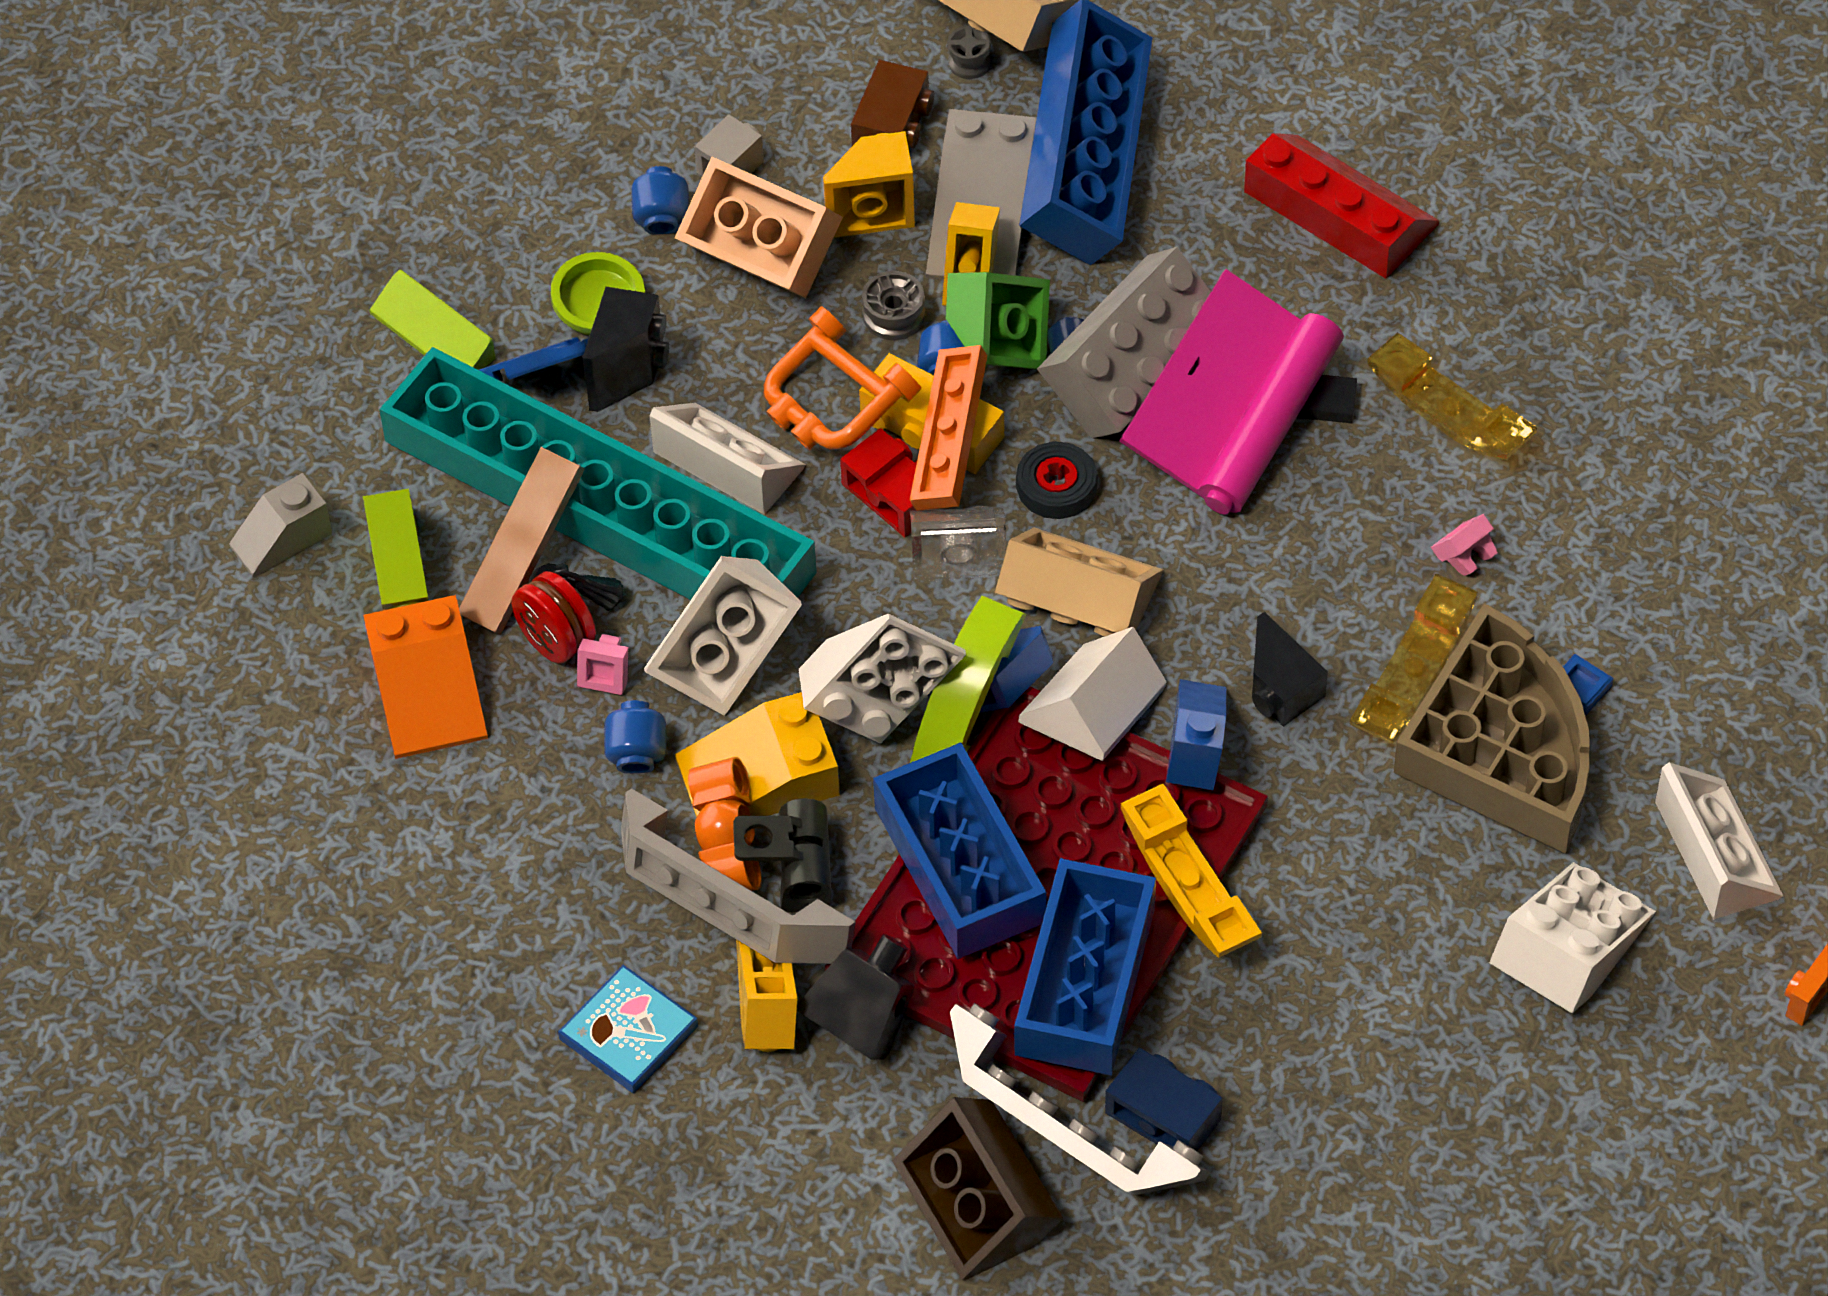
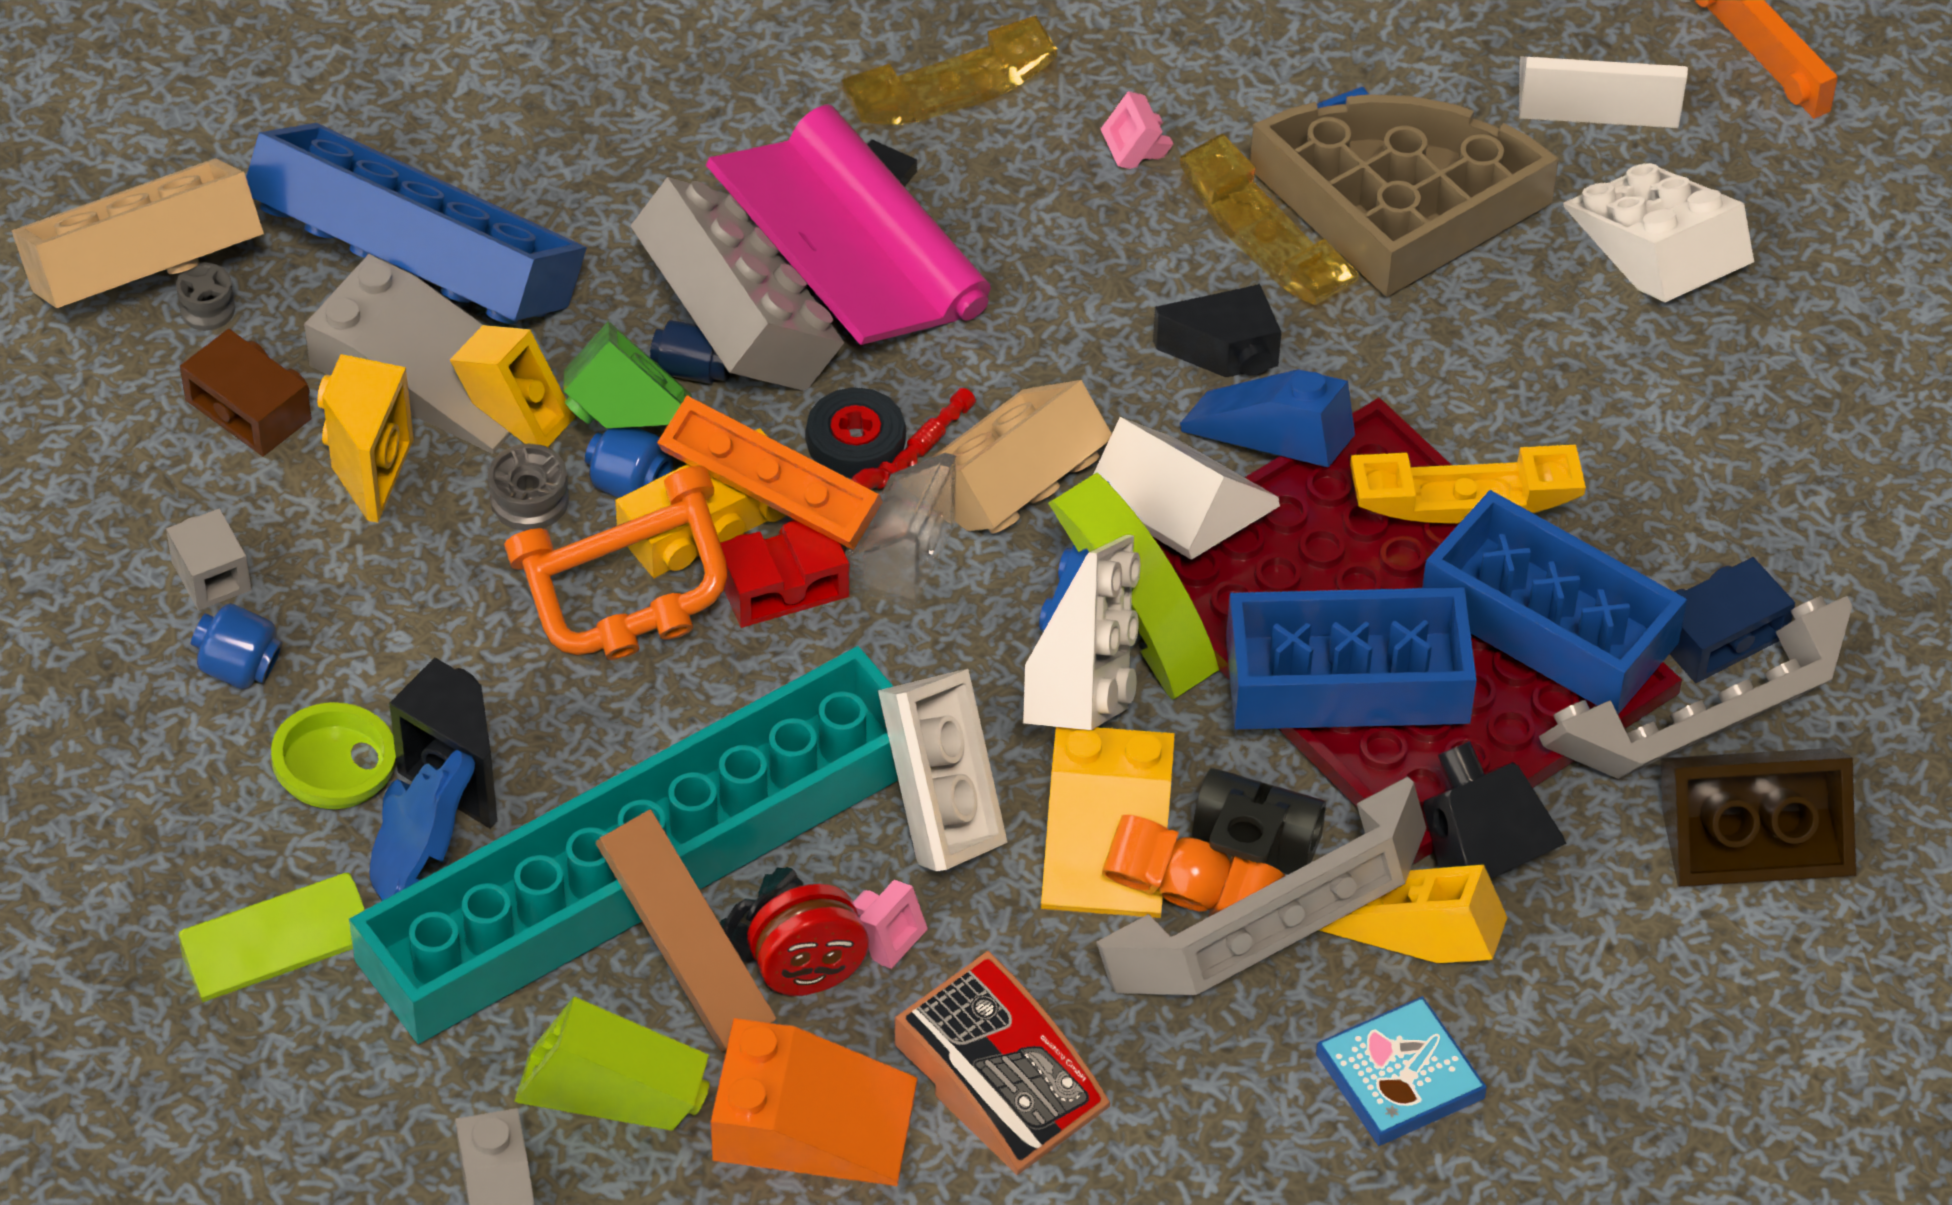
camera: 70 degrees left, 5 degrees down
(511, 774) = (1000, 1063): none -> slope
(635, 737) = (1011, 924): blue head -> none
(722, 454) = (648, 713): white slope -> none
(758, 227) = (359, 554): light nougat brick -> none
(1066, 523) = (919, 443): none -> red piece
(1336, 202) = (630, 72): red slope -> none

